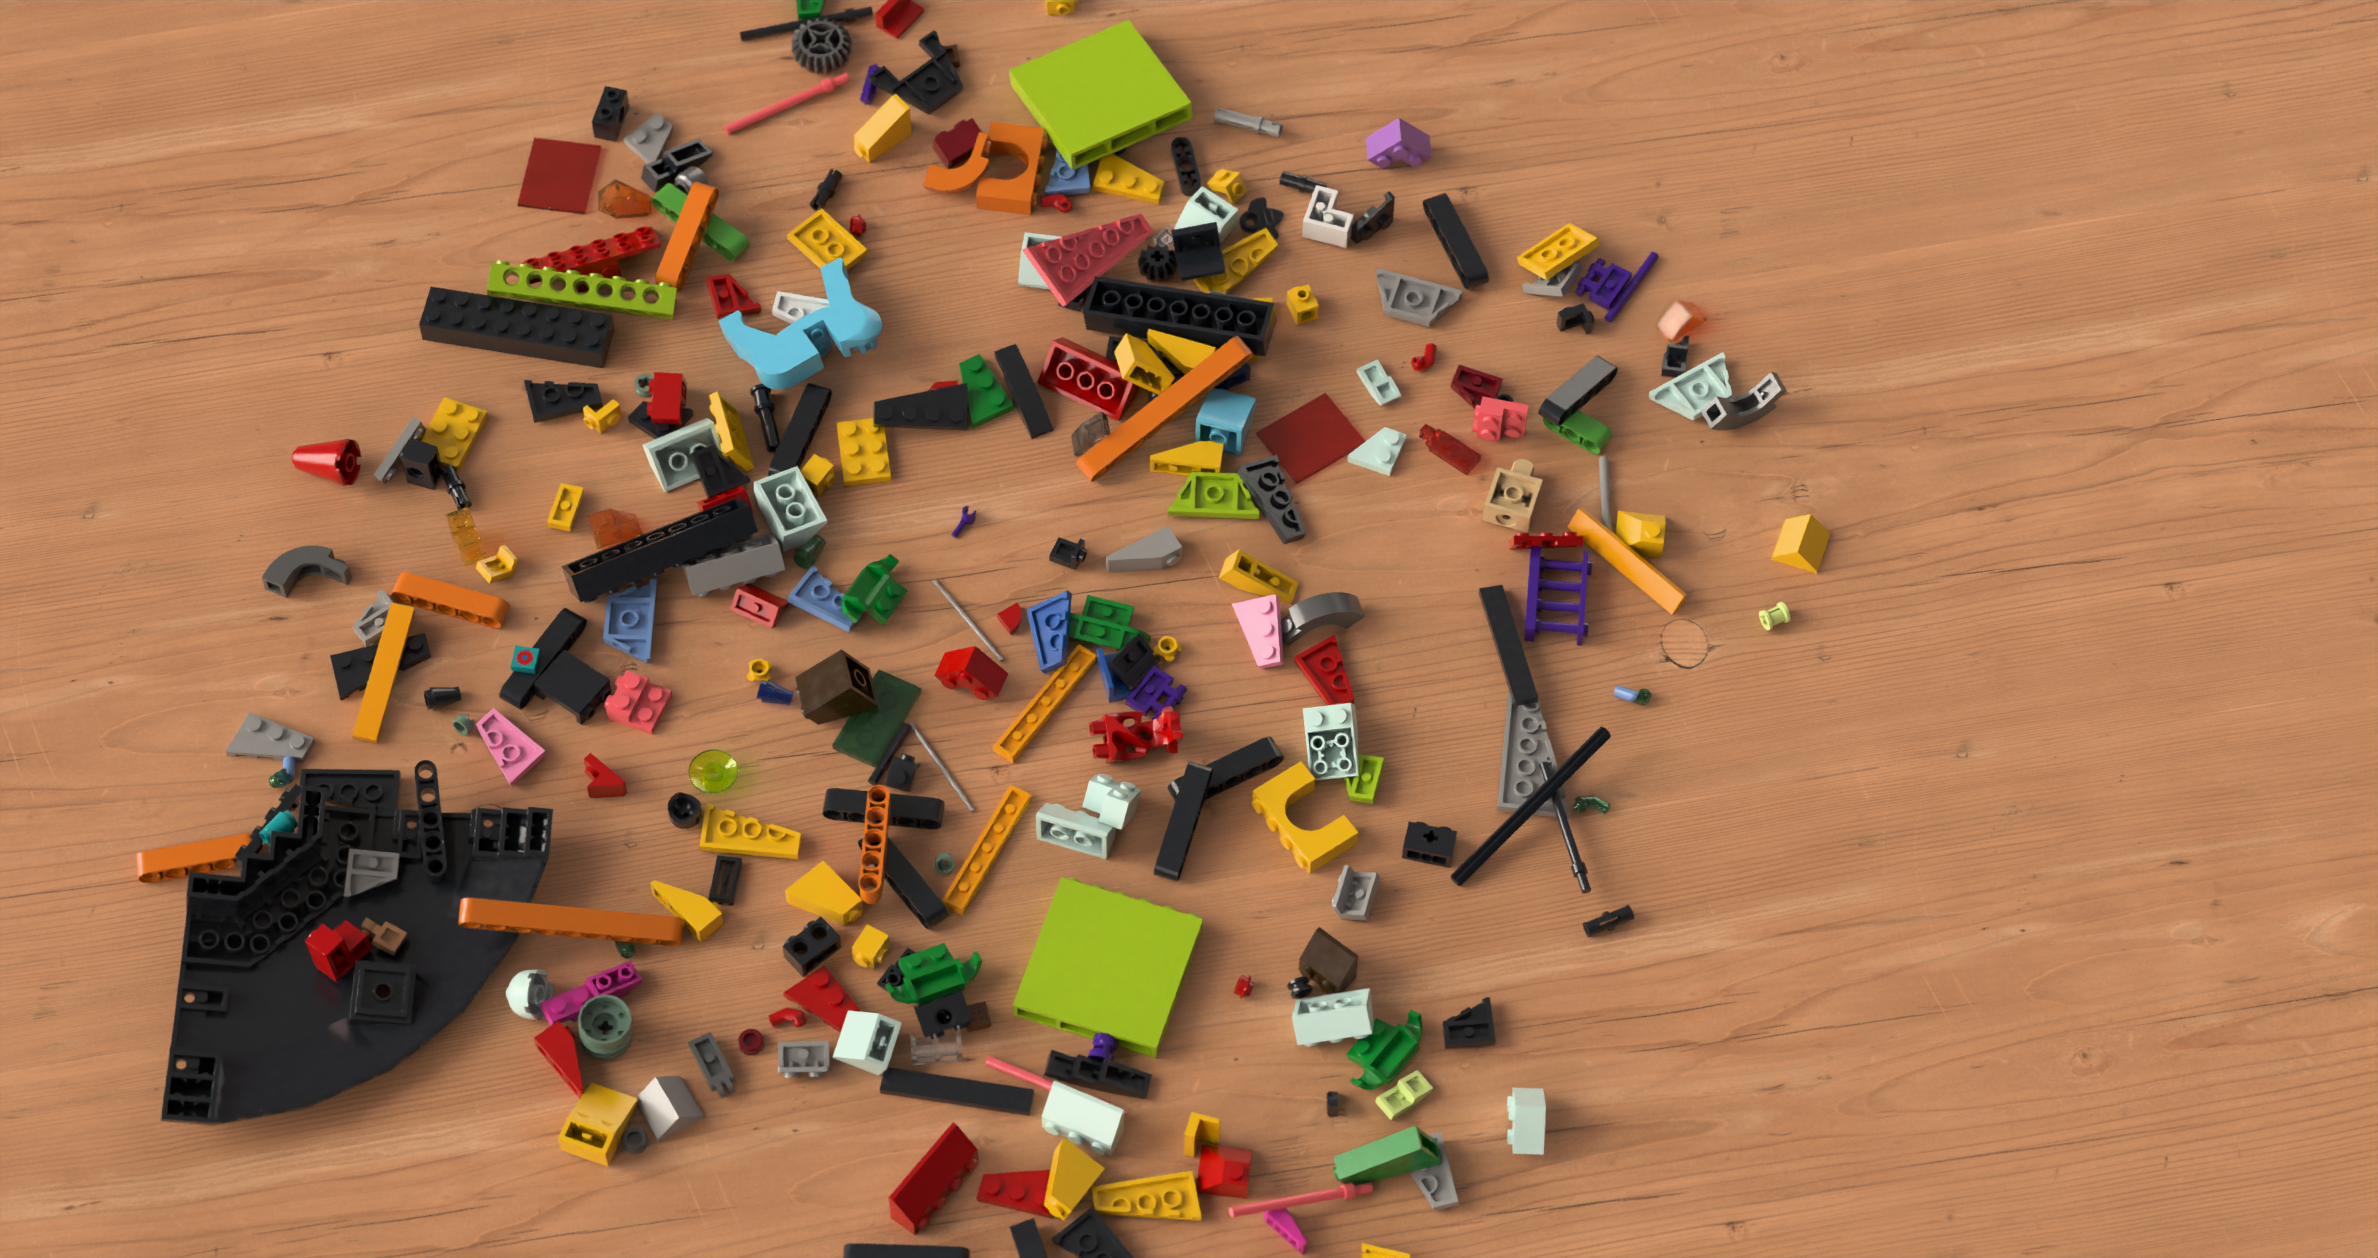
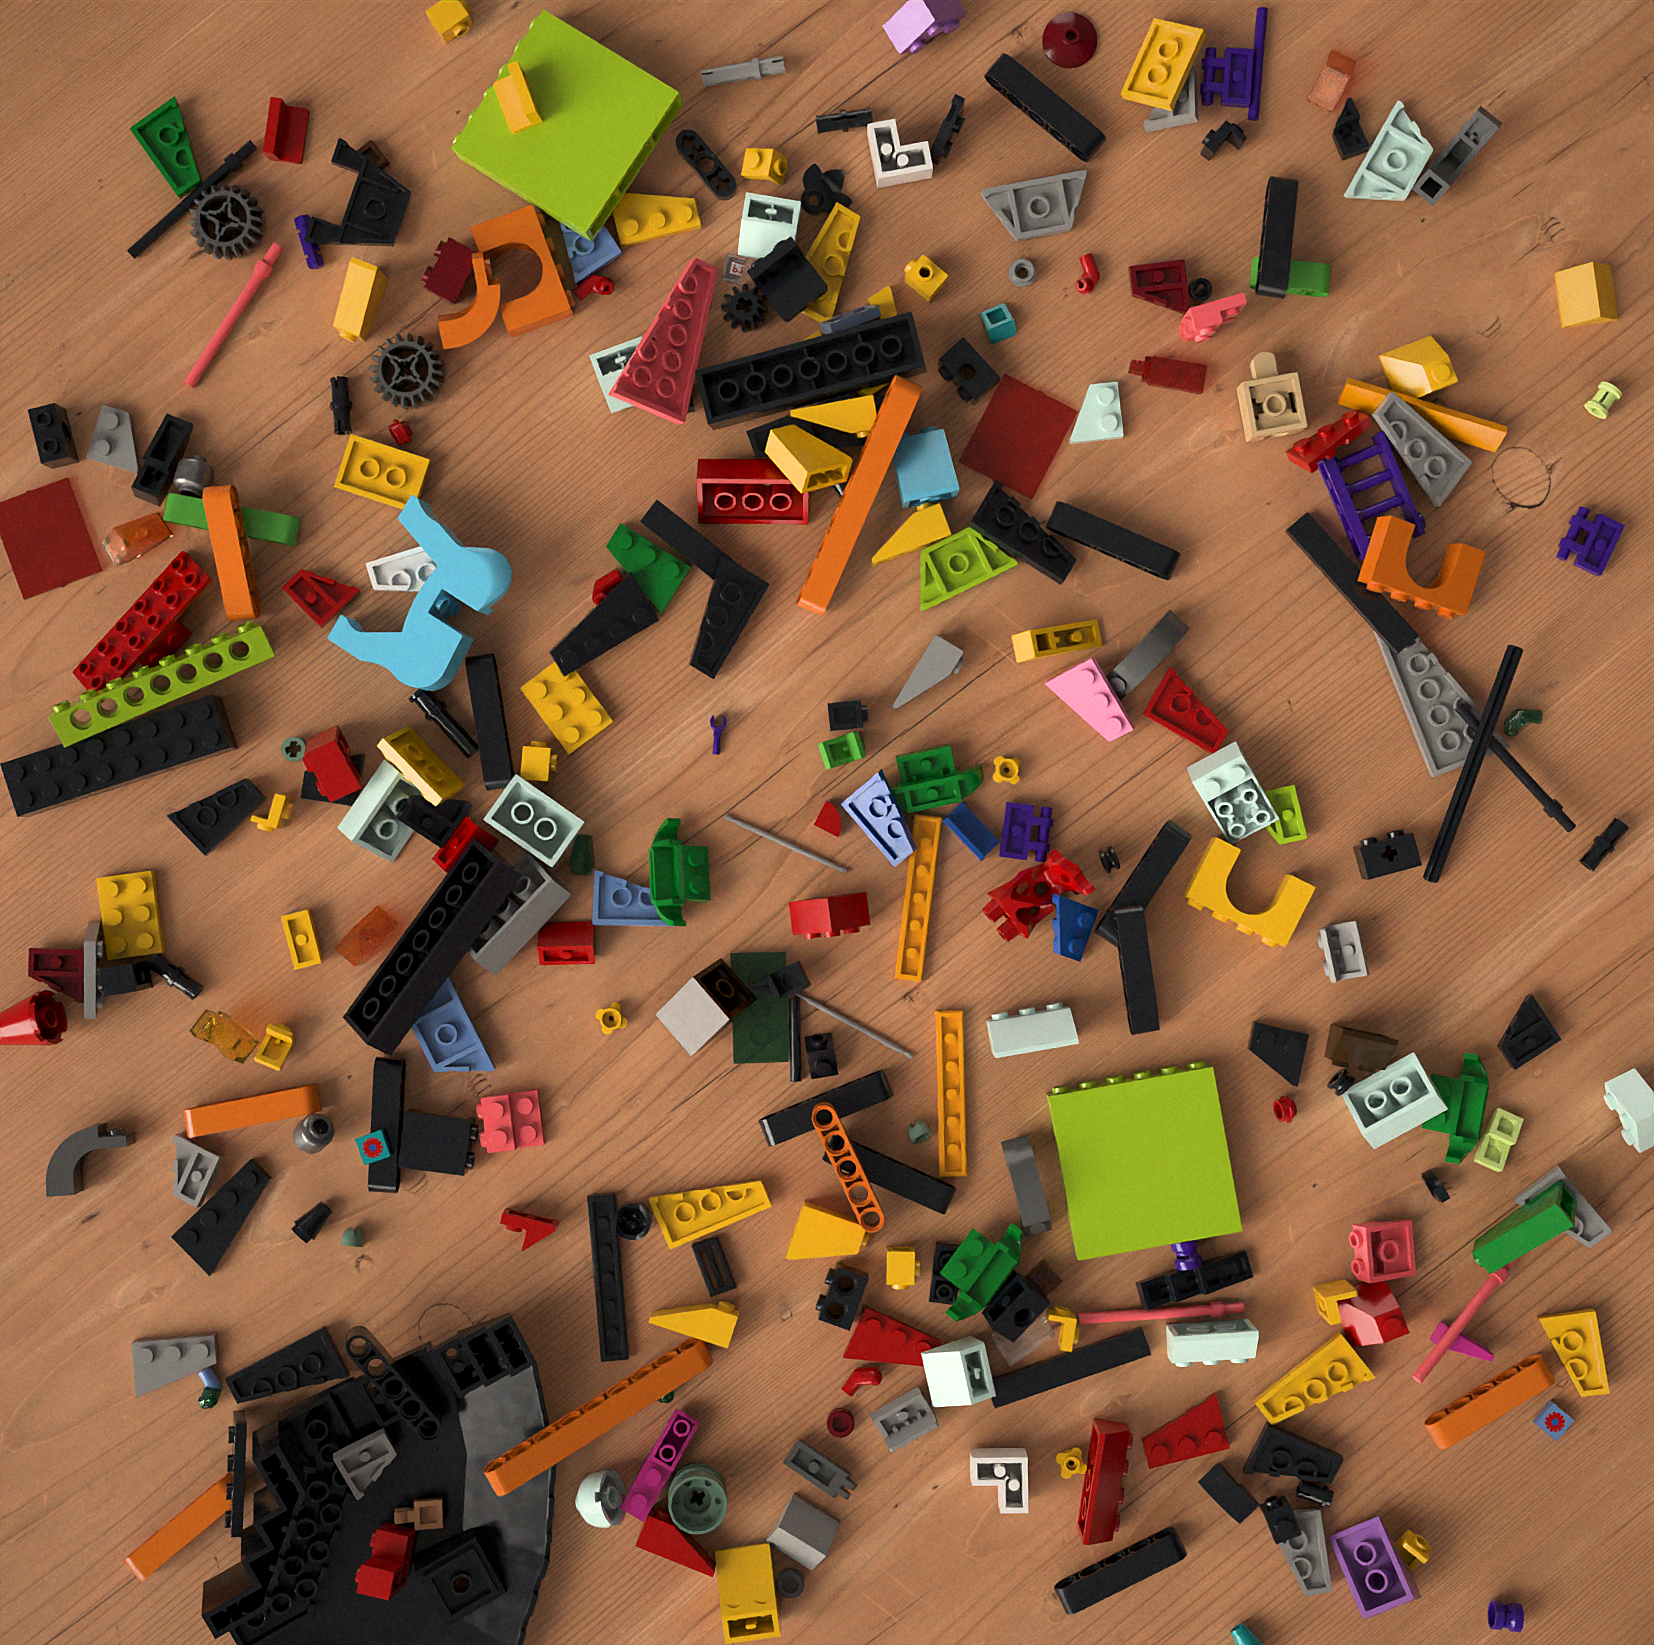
camera: 30 degrees left, 30 degrees up
(281, 822) = (249, 1486): teal cone -> none
(374, 440) = (59, 969): none -> dark red wing
(383, 672) = (238, 1231): light orange tile -> none
(486, 634) = (313, 1133): none -> flat silver head
(509, 746) = (413, 1238): bright pink wing -> none
(636, 850) = (608, 1278): none -> black tile
(709, 763) = (630, 1173): clear neon green dish -> none
(773, 693) = (640, 1038): clear blue cone -> none
(860, 1134) = (1004, 1469): none -> white brick
(887, 190) = (400, 379): none -> dark grey gear
(907, 705) = (784, 981): none -> black slope
(912, 1155) = (1065, 1457): none -> yellow plate
(974, 1058) = (1068, 1332): none -> yellow bracket
(1002, 938) = (1026, 1185): none -> dark grey arch
(1025, 442) = (727, 611): none -> black wing
(1049, 574) = (842, 750): none -> bright green bracket
(1069, 1178) = (1234, 1413): yellow slope -> none
(1075, 59) = (517, 100): none -> yellow panel
(1089, 433) = (794, 564): clear smoke slope -> none
(1112, 799) = (1053, 980): light aqua brick -> none
(1133, 661) = (985, 811): black plate -> none
(1153, 772) = (1072, 927): none -> blue wing
(1209, 744) = (1109, 859): none -> black bush
(1262, 1125) = (1383, 1250): none -> coral plate
(1265, 943) = (1279, 1049): none -> black wing
(1297, 364) = (962, 356): none -> black brick
(1340, 360) = (998, 323): none -> teal slope
(1341, 534) = (1113, 540): none -> black beam
(1377, 329) = (1023, 264): none -> light grey plate
(1378, 383) = (1054, 332): light aqua slope -> none
(1497, 218) = (1065, 52): none -> dark red dish
(1574, 685) = (1386, 570): none -> orange arch
(1605, 492) = (1356, 342): light grey bar -> none
(1614, 582) = (1423, 449): none -> light grey wing
(1640, 698) = (1503, 573): arm -> none
(1716, 712) = (1598, 544): none -> dark purple plate

